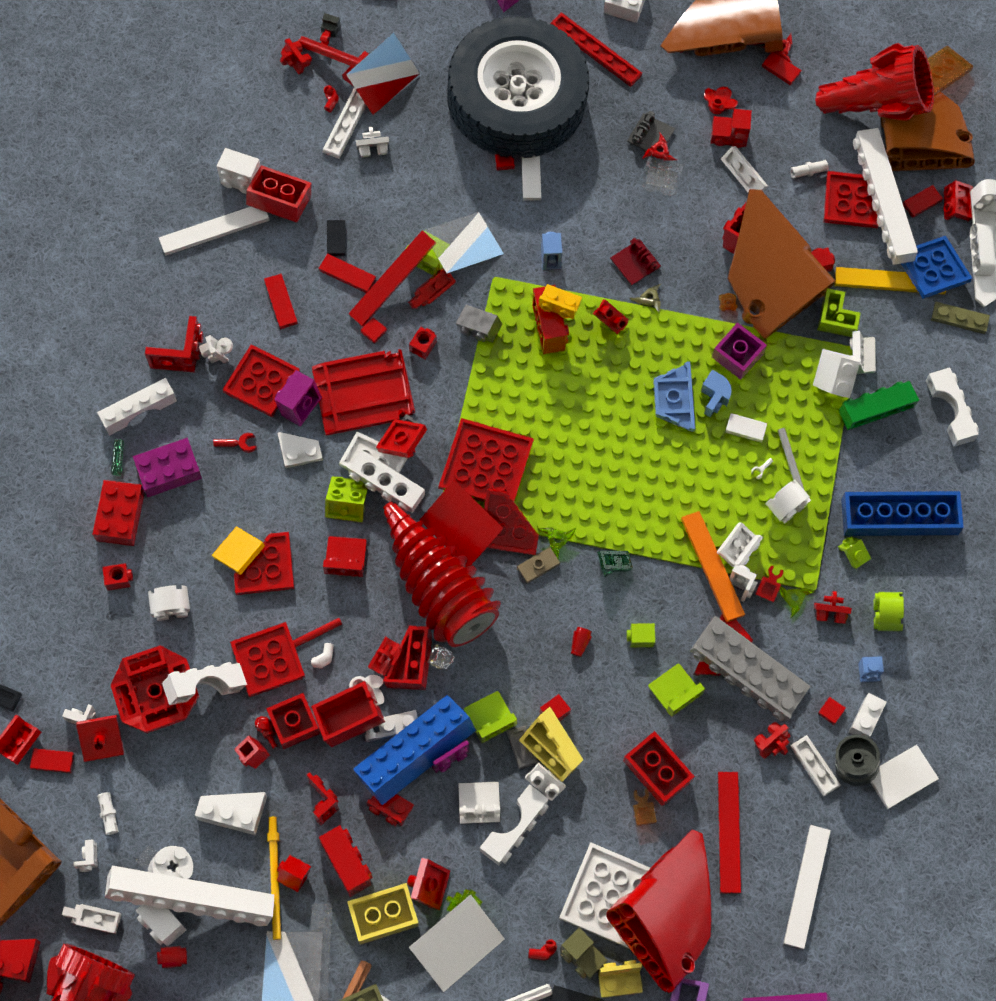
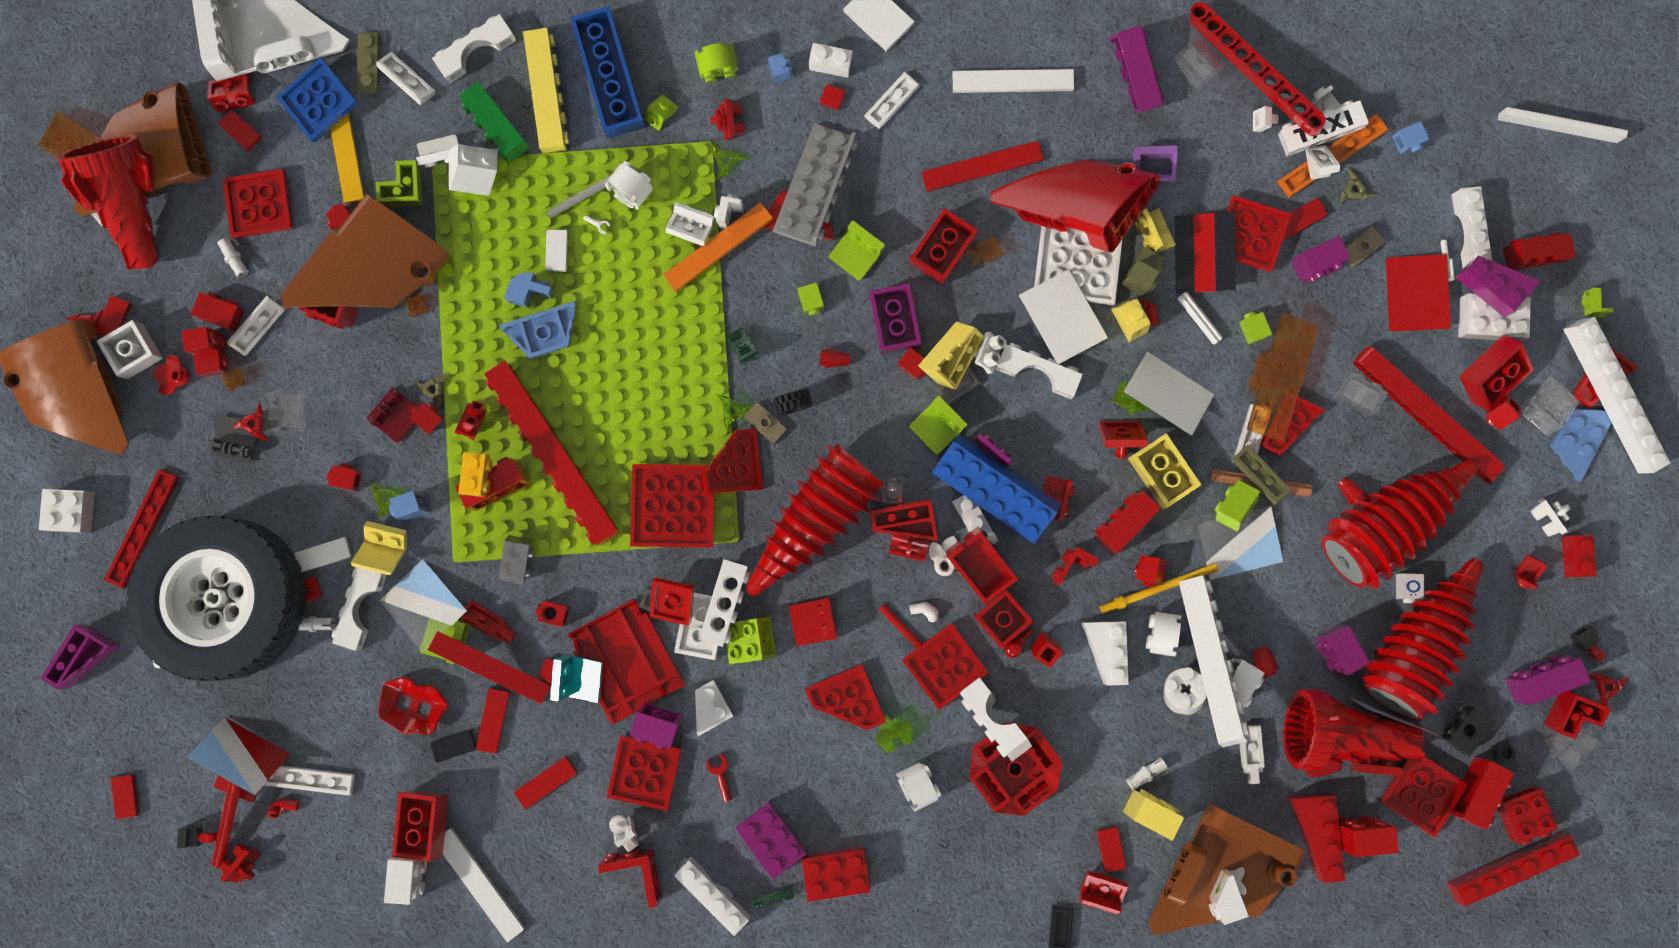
camera: 100 degrees left, 15 degrees up
(70, 799) = (1154, 813): none -> light yellow brick
(76, 715) = (1061, 840): white bracket -> none
(89, 853) = (1192, 776): white bracket -> none
(100, 738) = (1077, 807): red tile -> none
(110, 572) = (904, 859): red brick -> none
(220, 589) = (901, 730): none -> clear neon green hips
(230, 864) = (1164, 633): none -> white brick
(238, 550) = (840, 734): yellow tile -> none
(328, 974) = (1237, 505): none -> lime brick
(362, 344) = (576, 678): none -> bracket
(364, 145) = (333, 749): white hips -> none
(369, 208) = (409, 720): none -> red piece
(459, 182) = (350, 631): none -> white arch
(462, 522) = (746, 512): red sticker -> none
(474, 157) = (314, 624): none -> white pin
(479, 802) = (1025, 412): white hinge -> none
(520, 220) = (381, 548): none -> light yellow bracket
(539, 928) = (1132, 319): none -> light yellow torso
(549, 591) = (793, 402): none -> black tyre
(560, 862) = (1063, 316): none -> white sticker
(563, 375) = (552, 453): none -> red brick
(567, 243) = (378, 493): none -> clear neon green piece
(592, 209) = (344, 477): none -> red brick
(601, 704) = (895, 319): none -> magenta brick
(626, 283) = (425, 416): none -> red brick
(702, 140) = (228, 379): none -> clear orange plate
(739, 351) = (473, 276): magenta brick -> none
(749, 72) = (129, 349): none -> white brick
(764, 146) = (216, 311): none -> red brick
(768, 586) = (722, 185): red plate -> none
(775, 743) = (872, 141): red hips -> none
(857, 760) = (880, 46): pearl dark grey wheel -> none
(885, 196) = (246, 167): white brick -> none
(898, 457) = (545, 91): none -> light yellow brick
(938, 344) = (405, 78): none -> white tile

